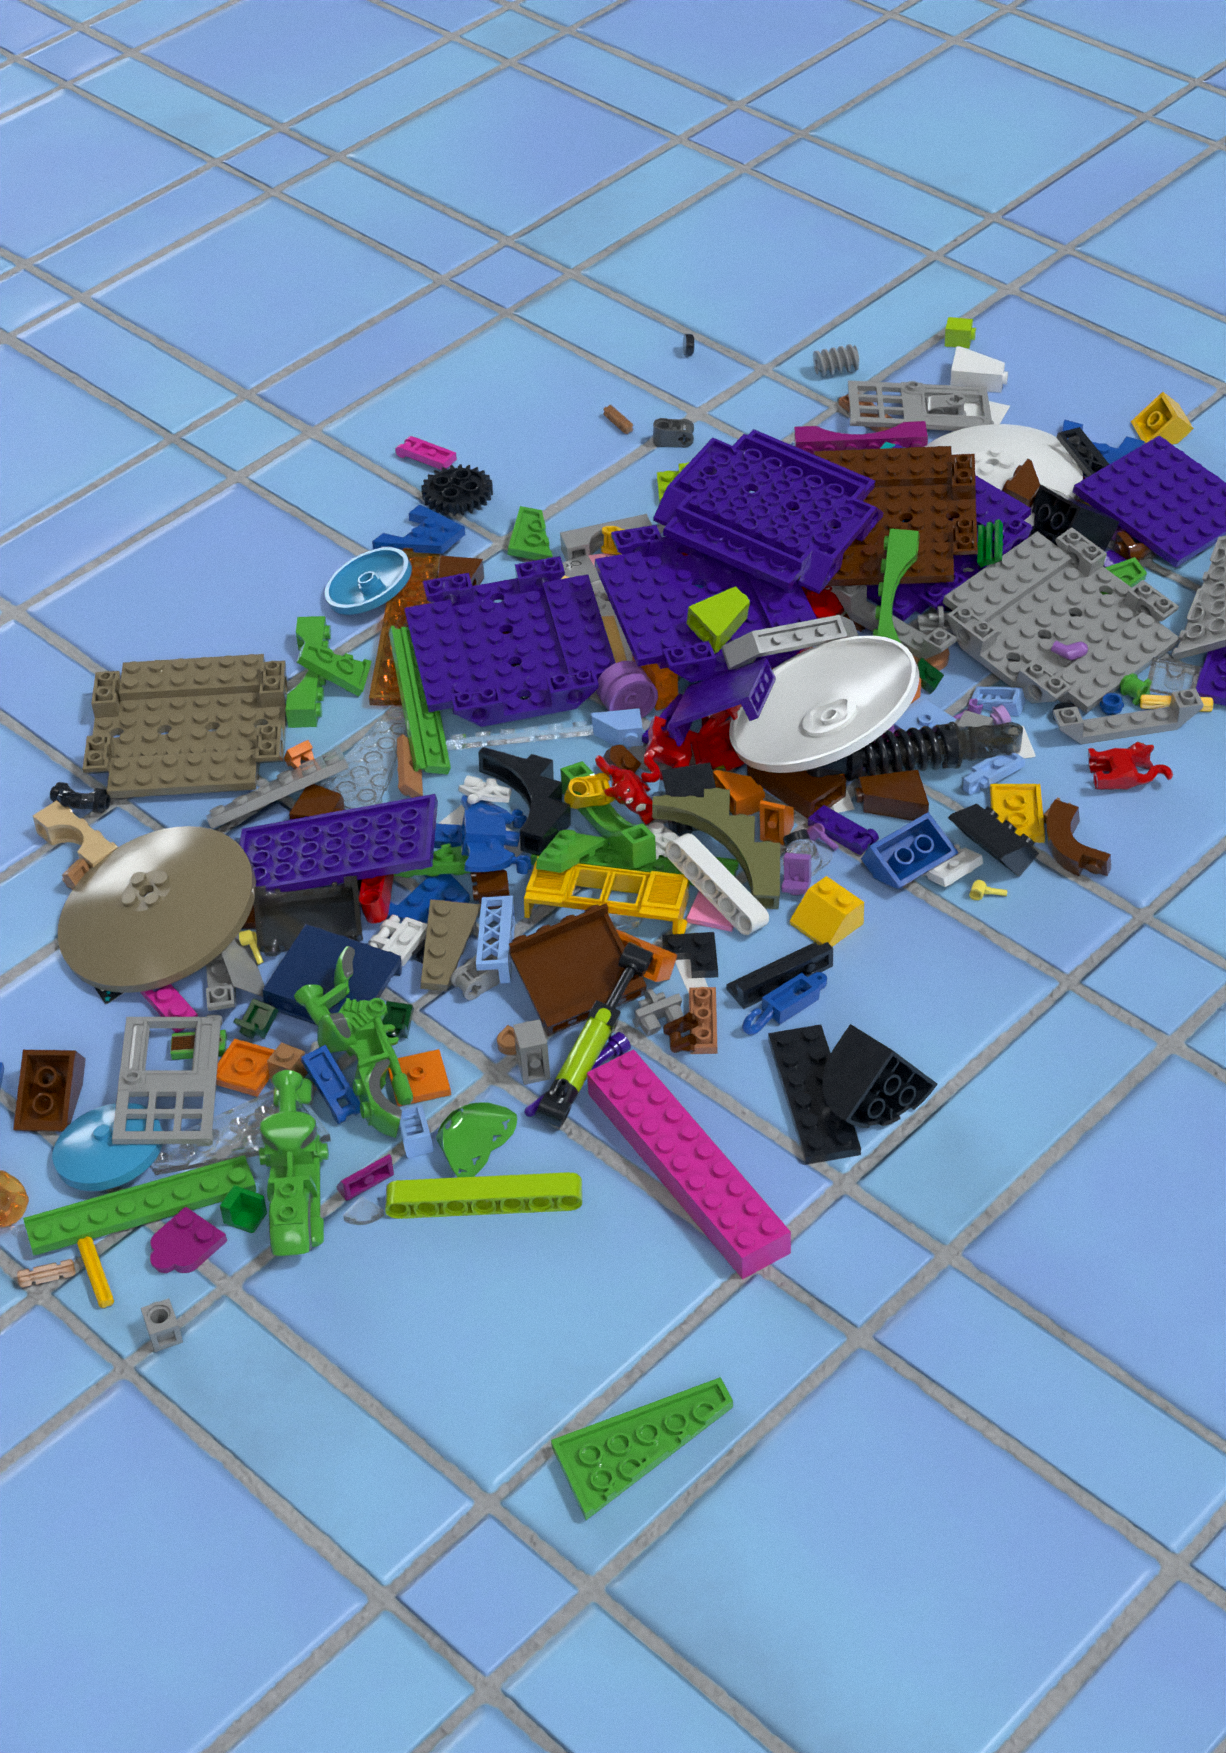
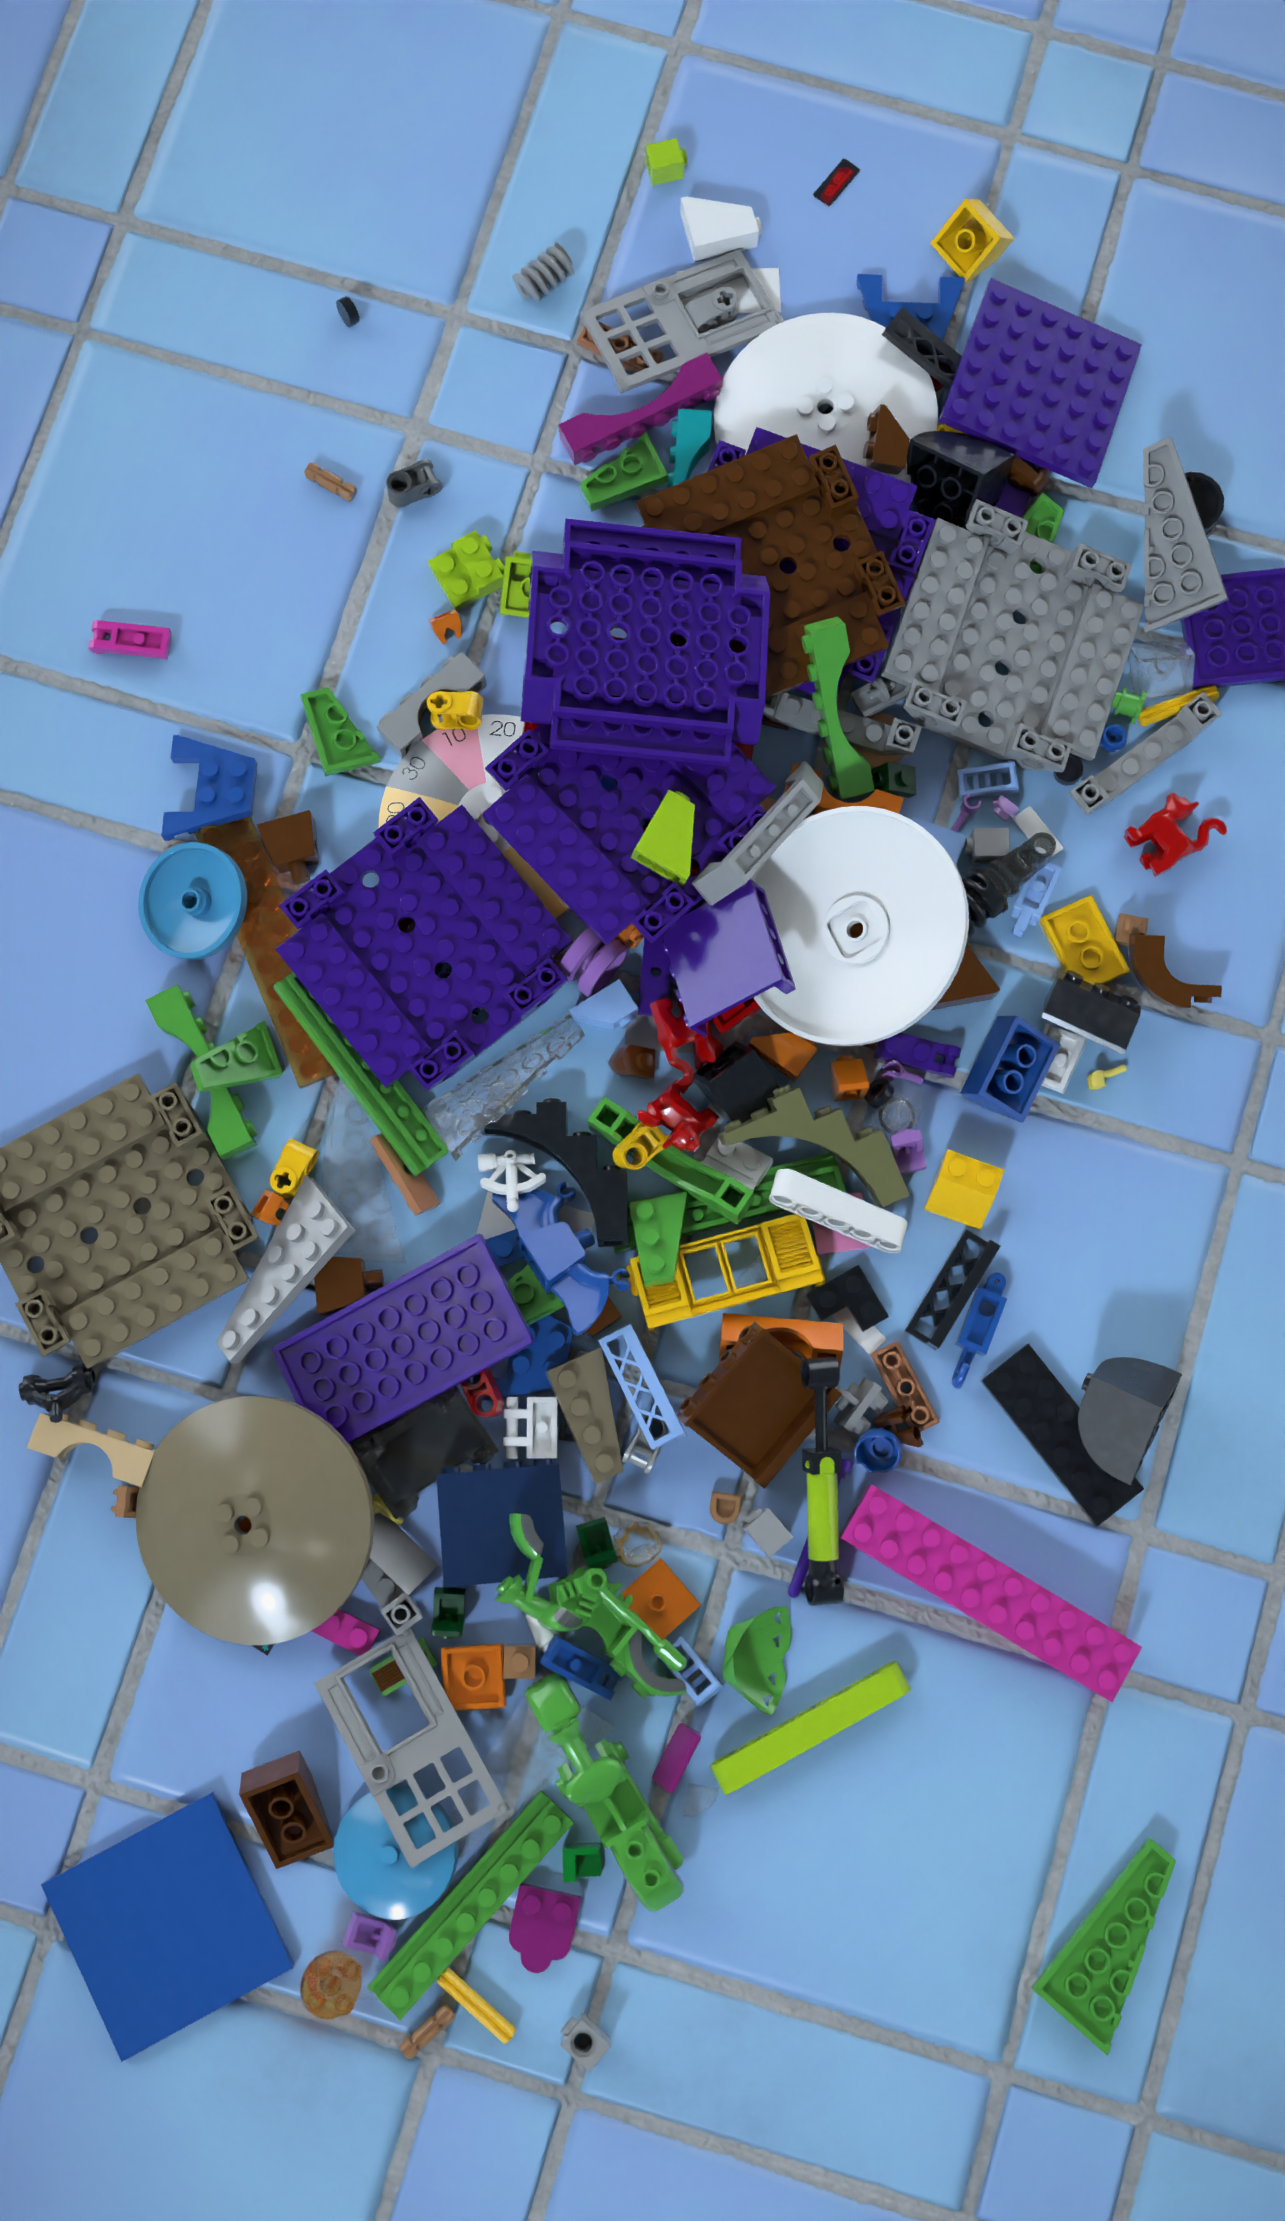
camera: 30 degrees left, 35 degrees up
(49, 1190) = (370, 1935): none -> medium lavender bracket
(330, 737) = (294, 1164): none -> yellow piece
(426, 1033) = (637, 1544): none -> clear hair
(457, 490) = (185, 678): black gear -> none
(646, 502) = (443, 621): none -> orange tile
(653, 1040) = (878, 1450): none -> blue hair
(986, 543) = (893, 546): green tile -> none
(1070, 651) = (1049, 688): medium lavender arm -> none
(1080, 377) = (836, 182): none -> sticker

